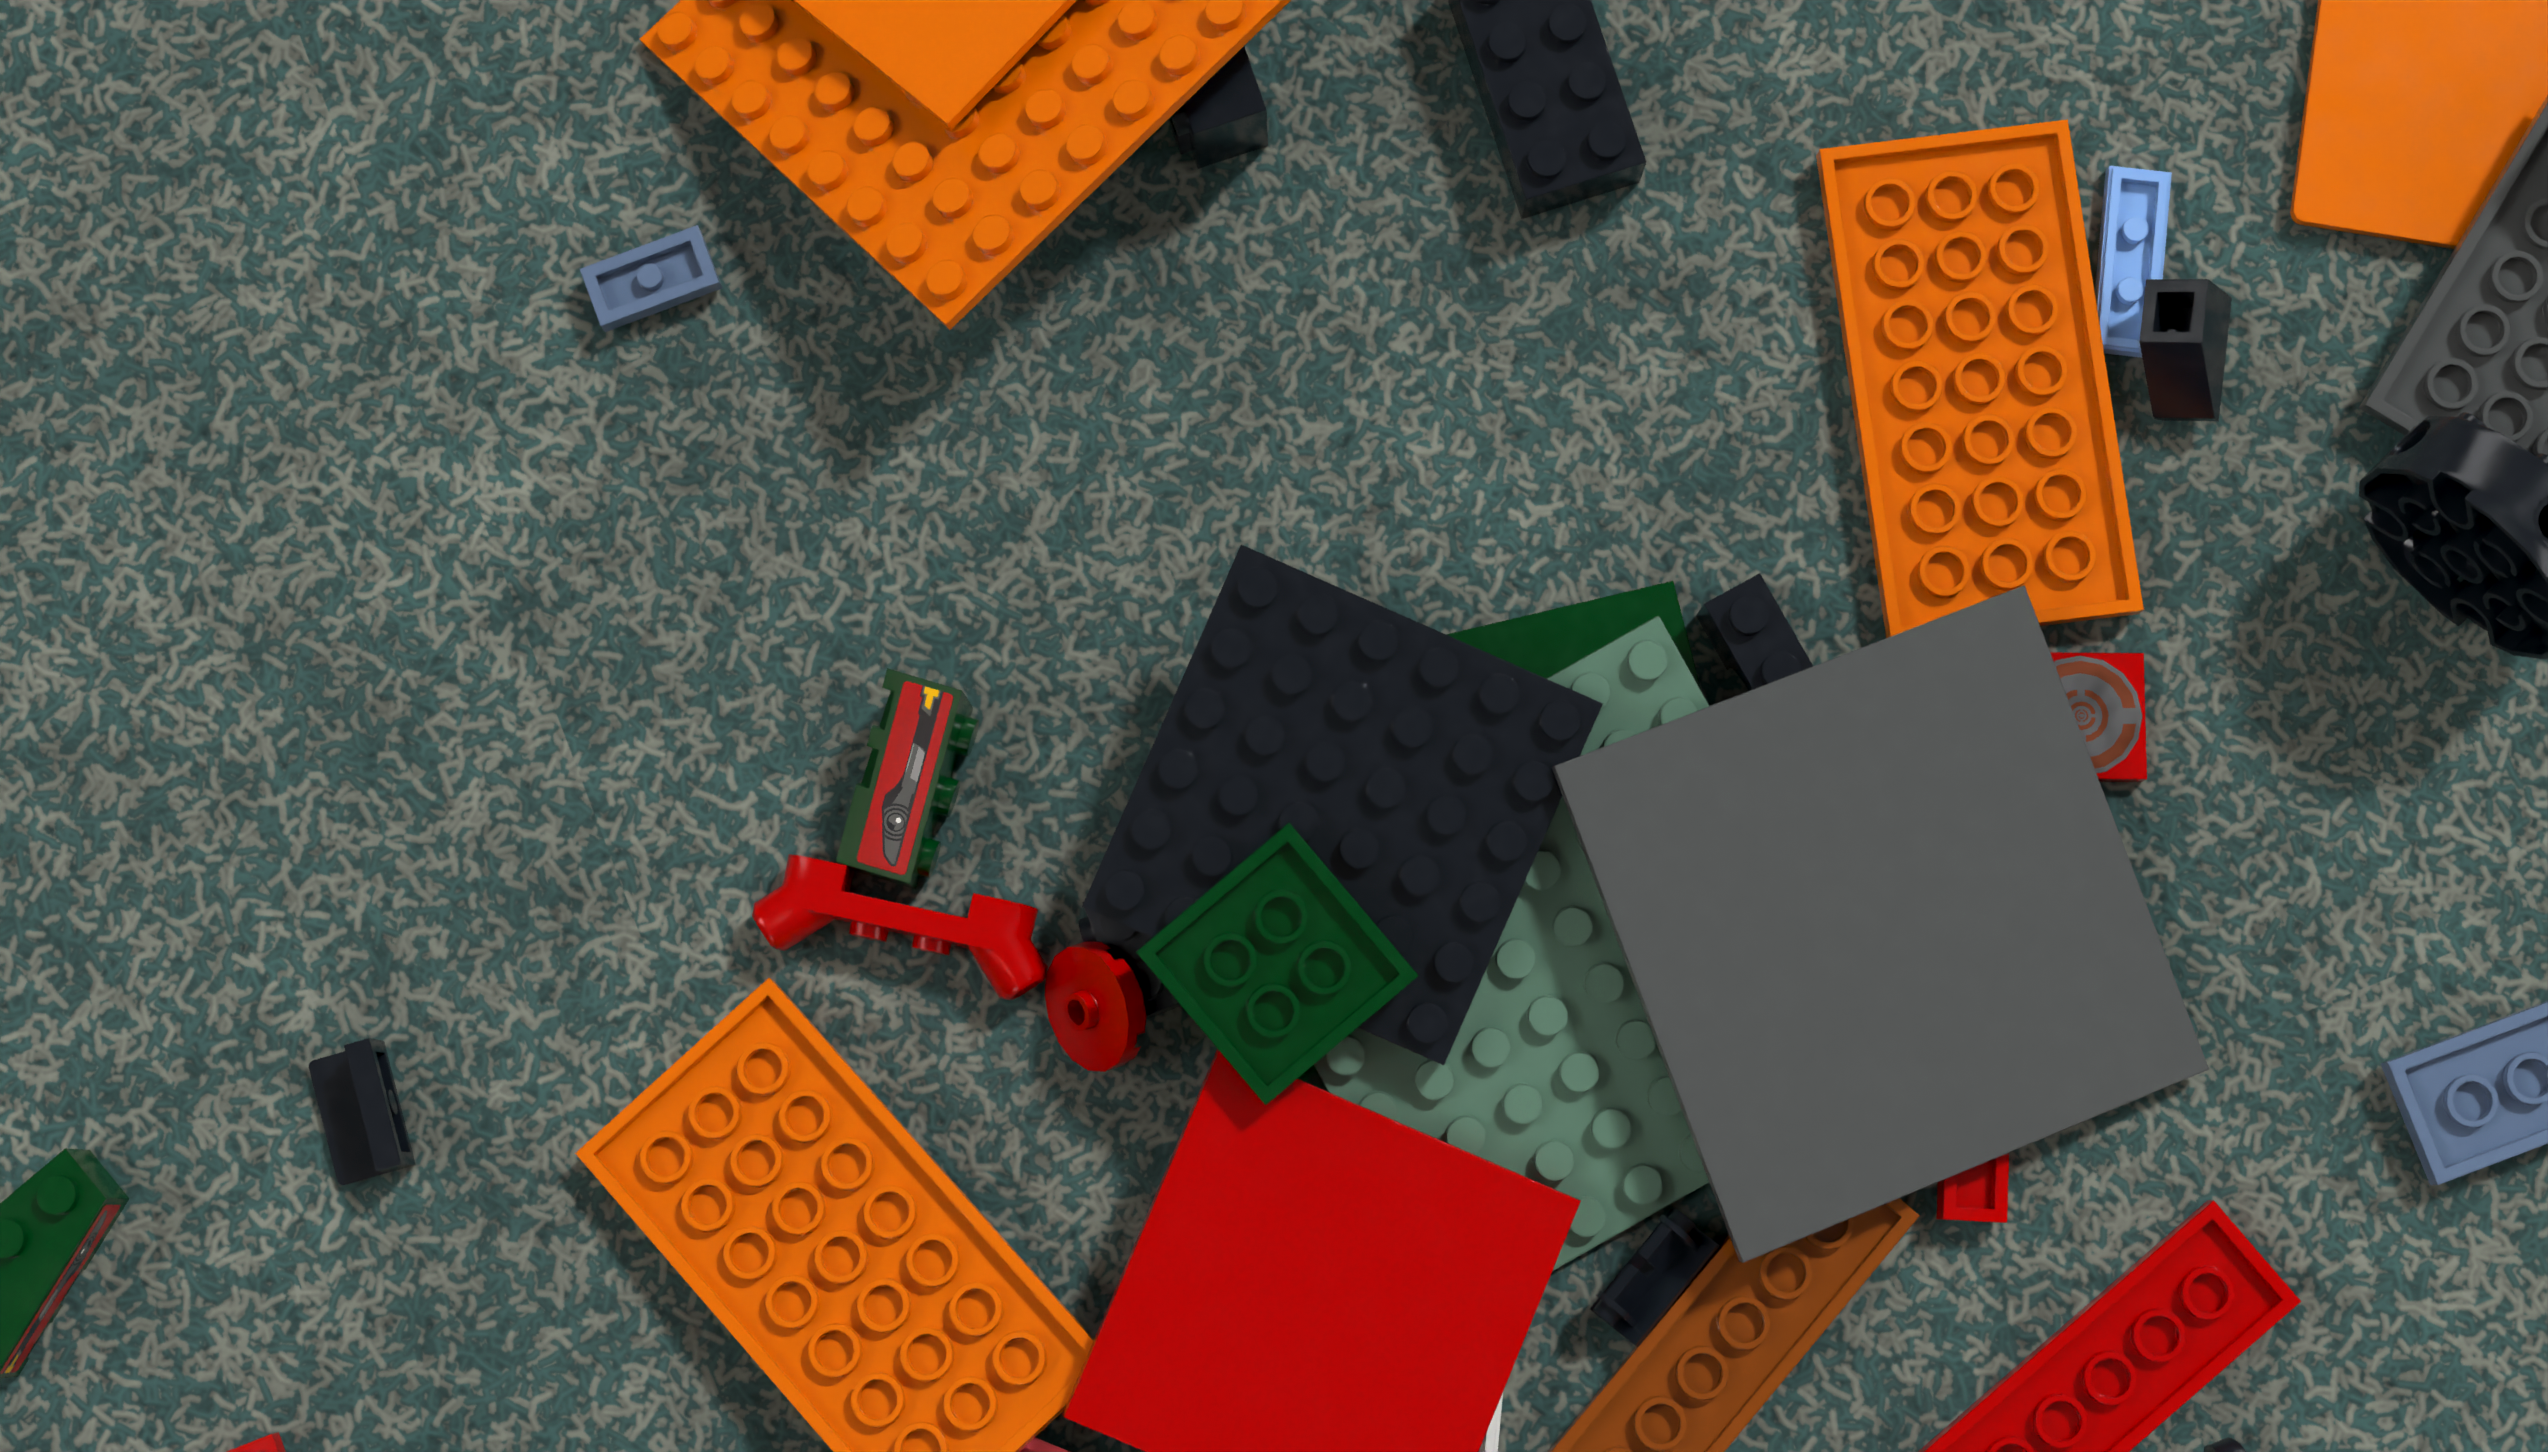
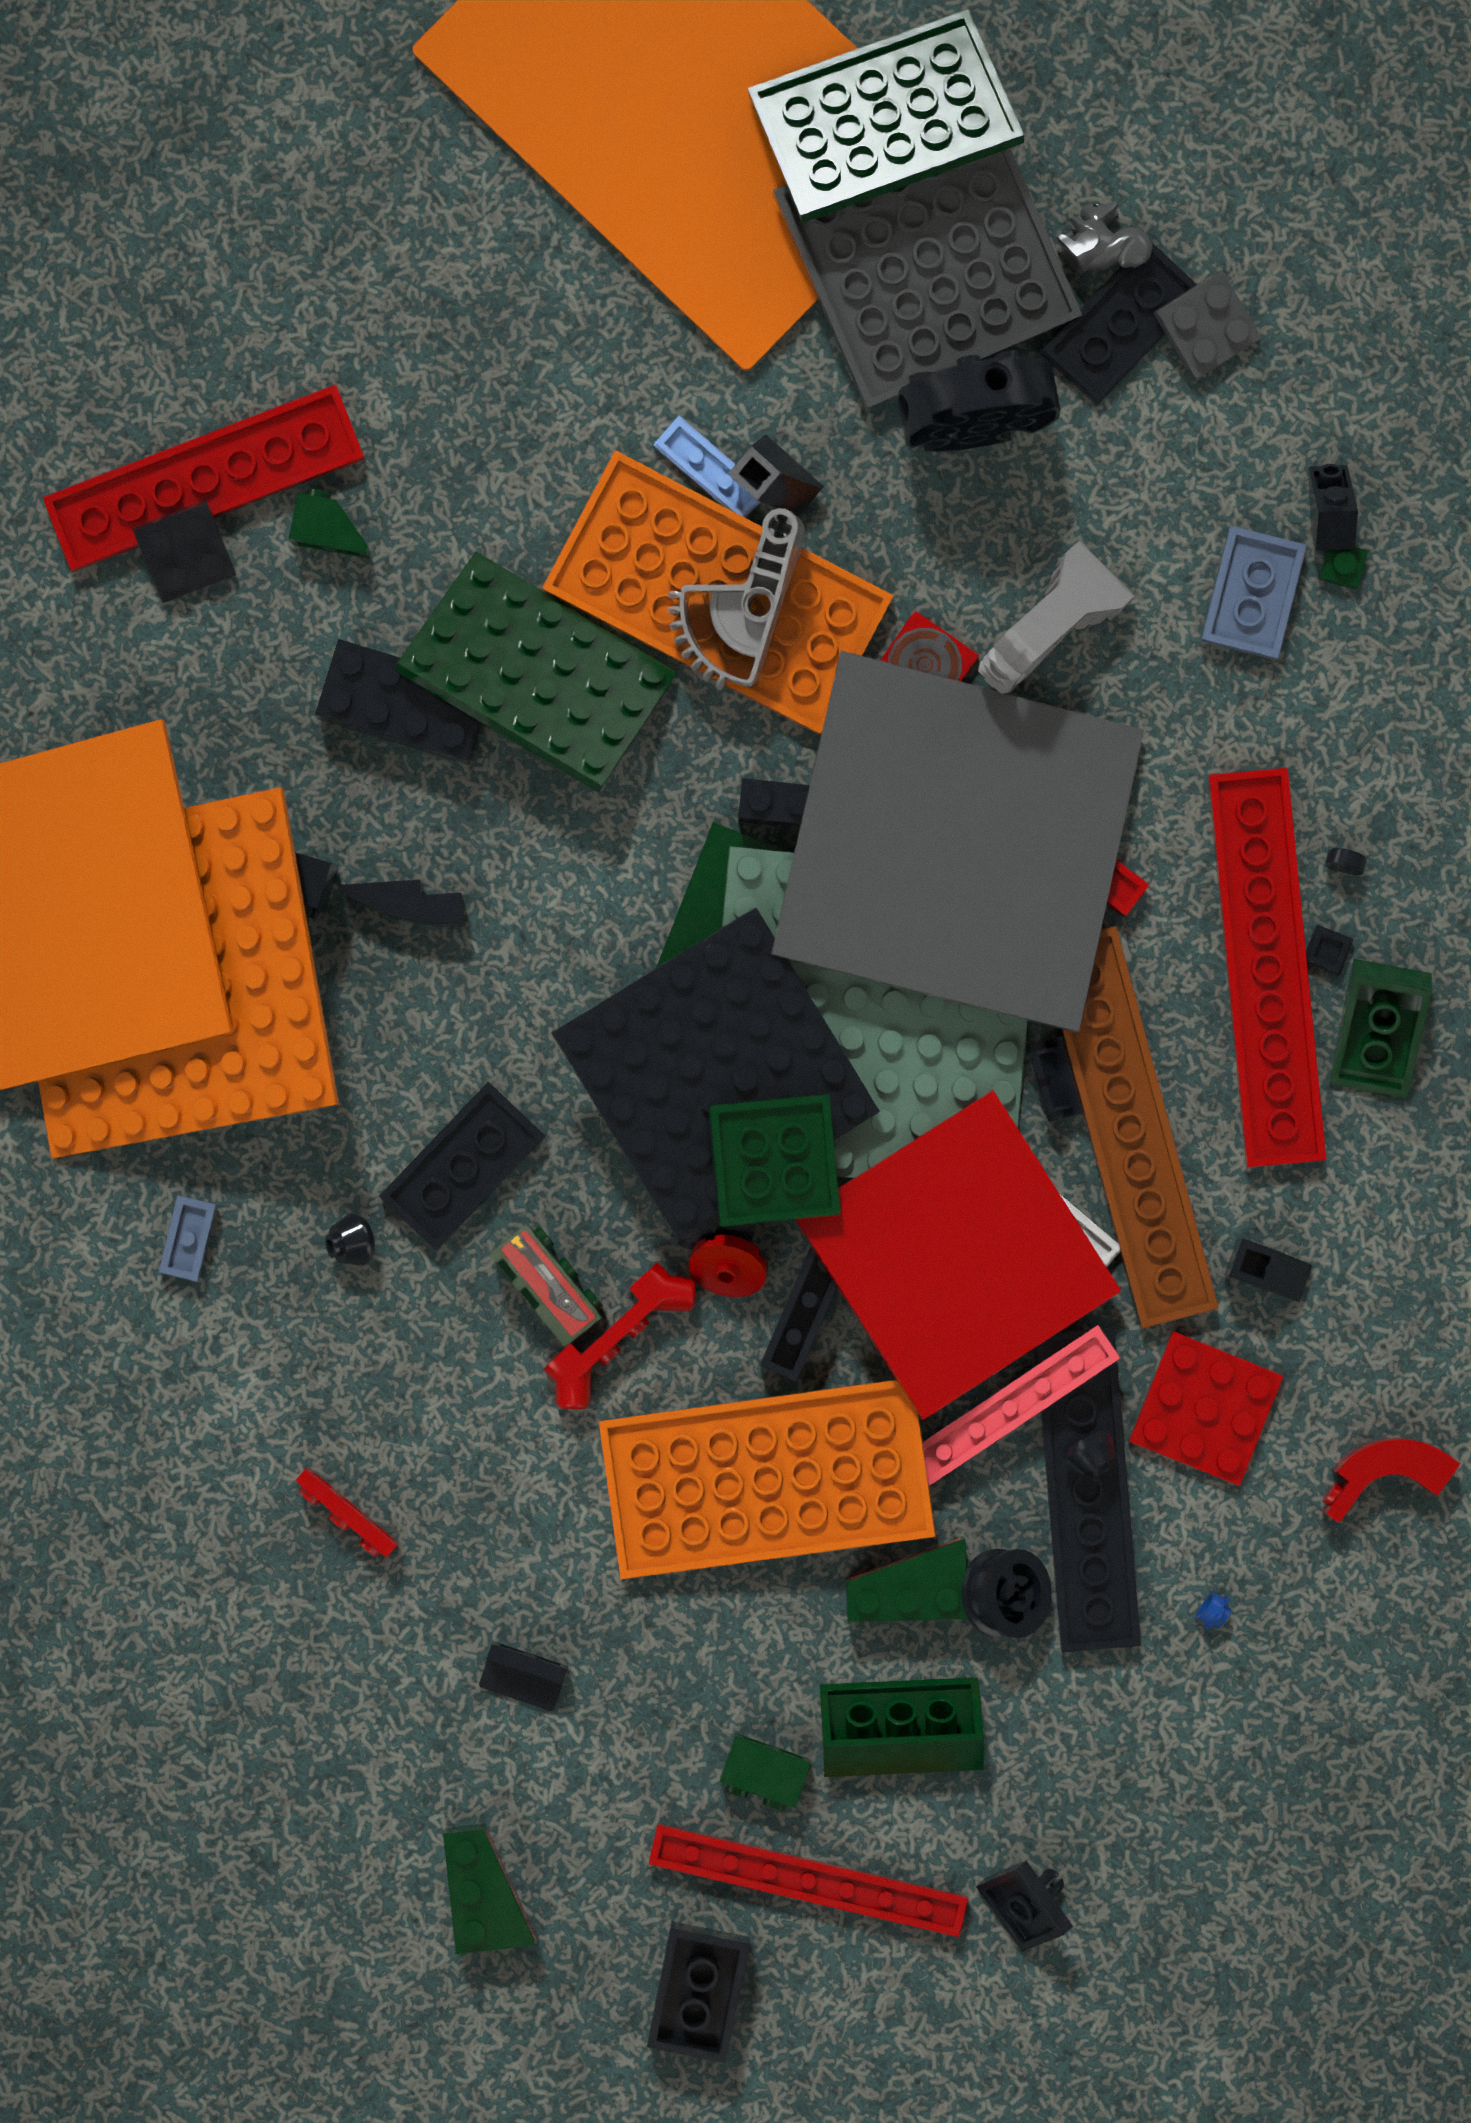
camera: 60 degrees left, 5 degrees up
(422, 727) = (345, 1513): none -> red plate
(788, 486) = (351, 1240): none -> black cone
(988, 566) = (462, 1166): none -> black plate
(1087, 1153) = (800, 1319): none -> black brick
(1288, 261) = (407, 902): none -> black slope
(1705, 212) = (536, 671): none -> dark green plate
(2055, 422) = (731, 604): none -> light grey arm
(2323, 852) = (1078, 595): none -> light grey arm

